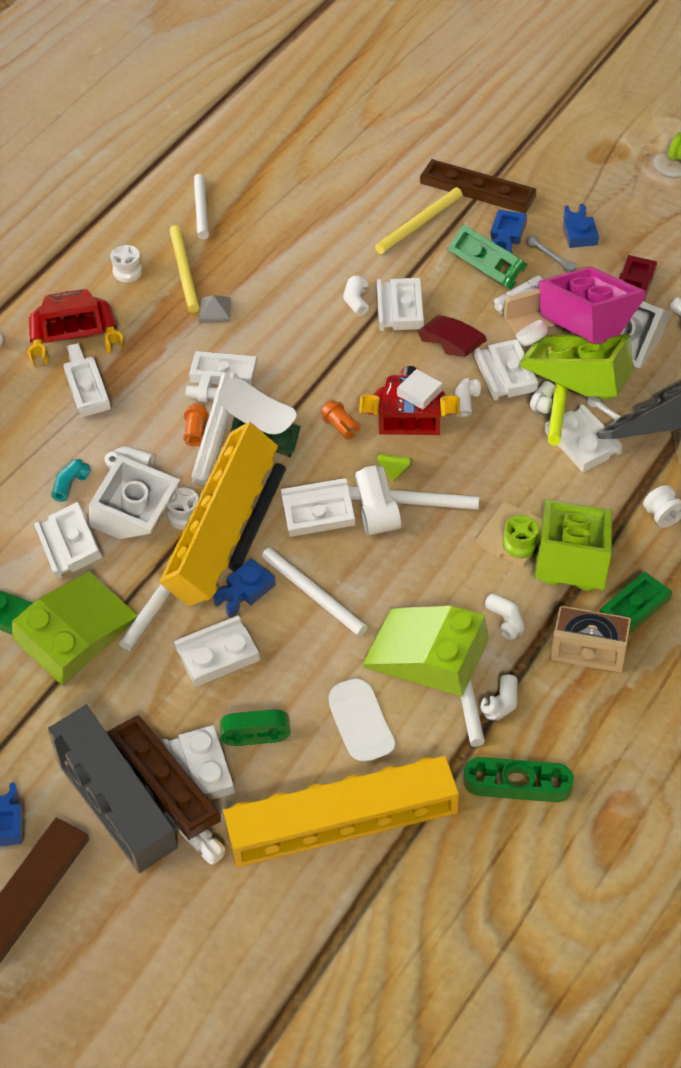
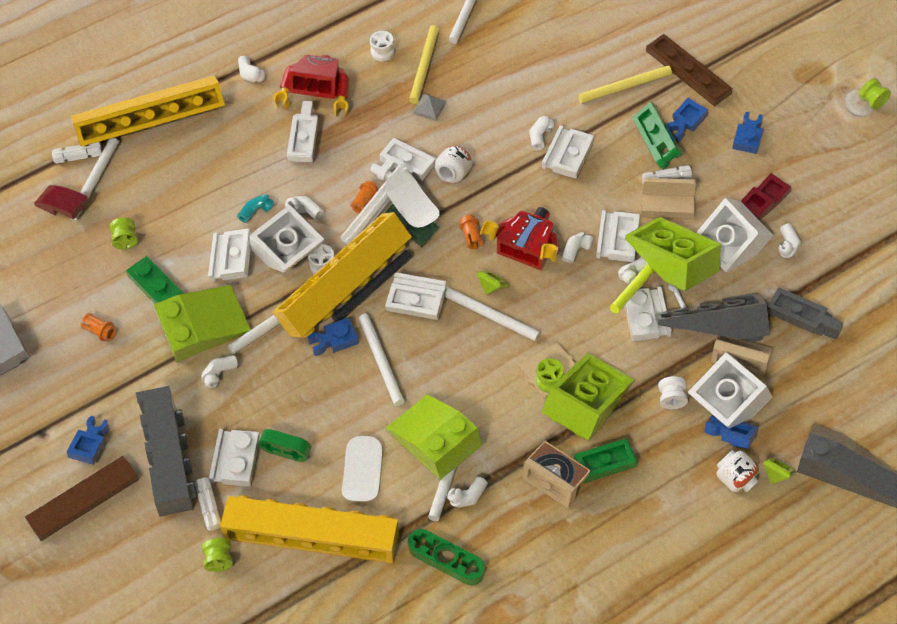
camera: 25 degrees right, 5 degrees up
(116, 681) = (215, 367): none -> white arm
(164, 777) = (204, 456): reddish brown tile -> none
(216, 651) = (290, 378): white plate -> none
(242, 887) = (217, 555): none -> lime wheel
(280, 356) = (453, 164): none -> white head
(378, 509) = (458, 315): white piece -> none
(419, 389) = (535, 230): white tile -> none
(453, 334) = (592, 192): dark red slope -> none
(514, 623) = (509, 428): white arm -> none
(532, 333) = (652, 213): white tile -> none
(569, 266) = (721, 165): light grey hinge -> none
(589, 303) = (703, 206): dark pink slope -> none

